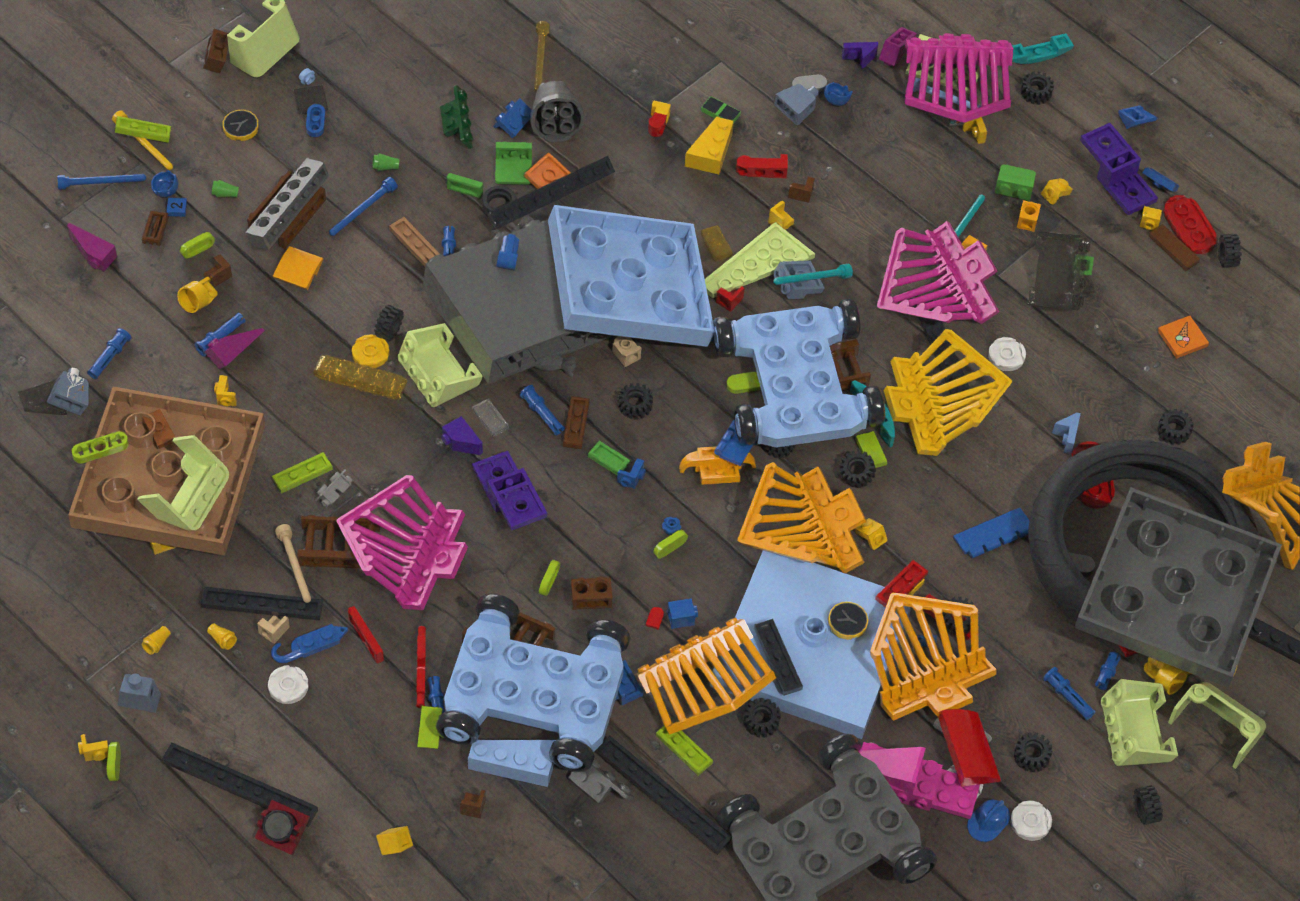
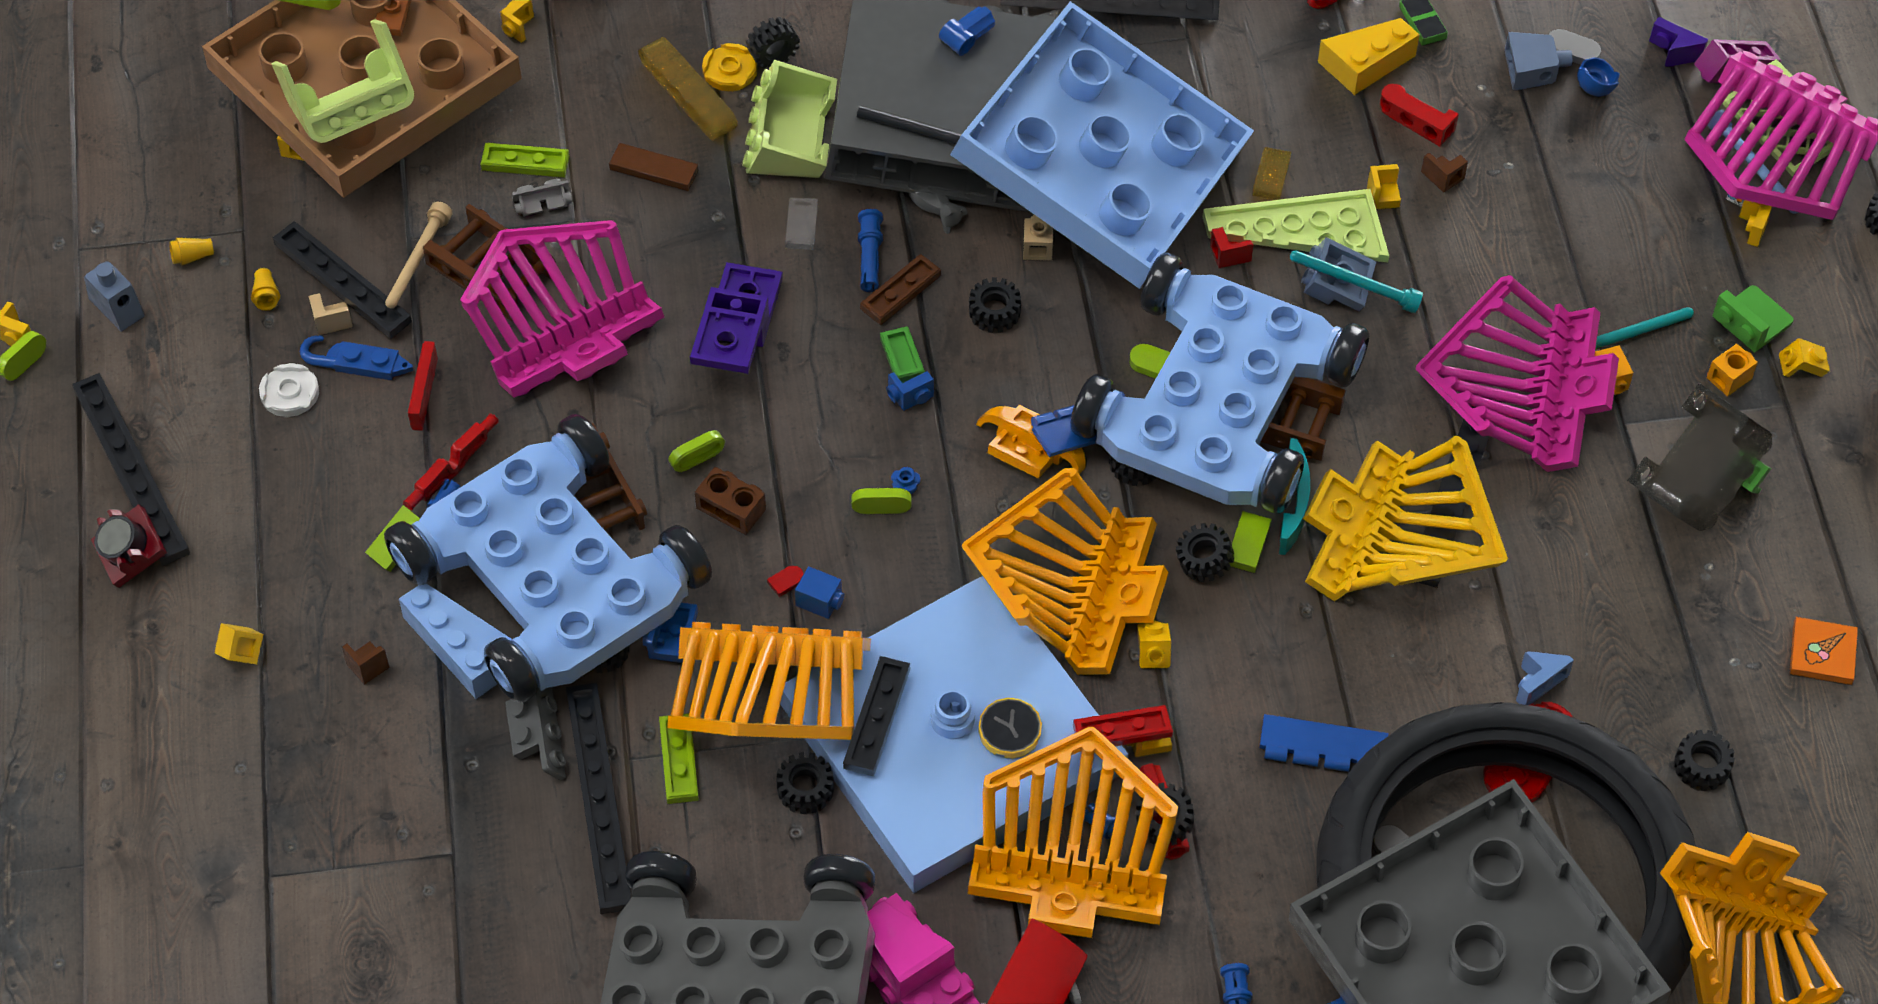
camera: 40 degrees right, 0 degrees up
(379, 433) = (653, 166): none -> reddish brown tile
(461, 437) = (741, 224): dark purple slope -> none
(526, 325) = (908, 125): none -> black bar
(1007, 354) = (1546, 529): white tile -> none

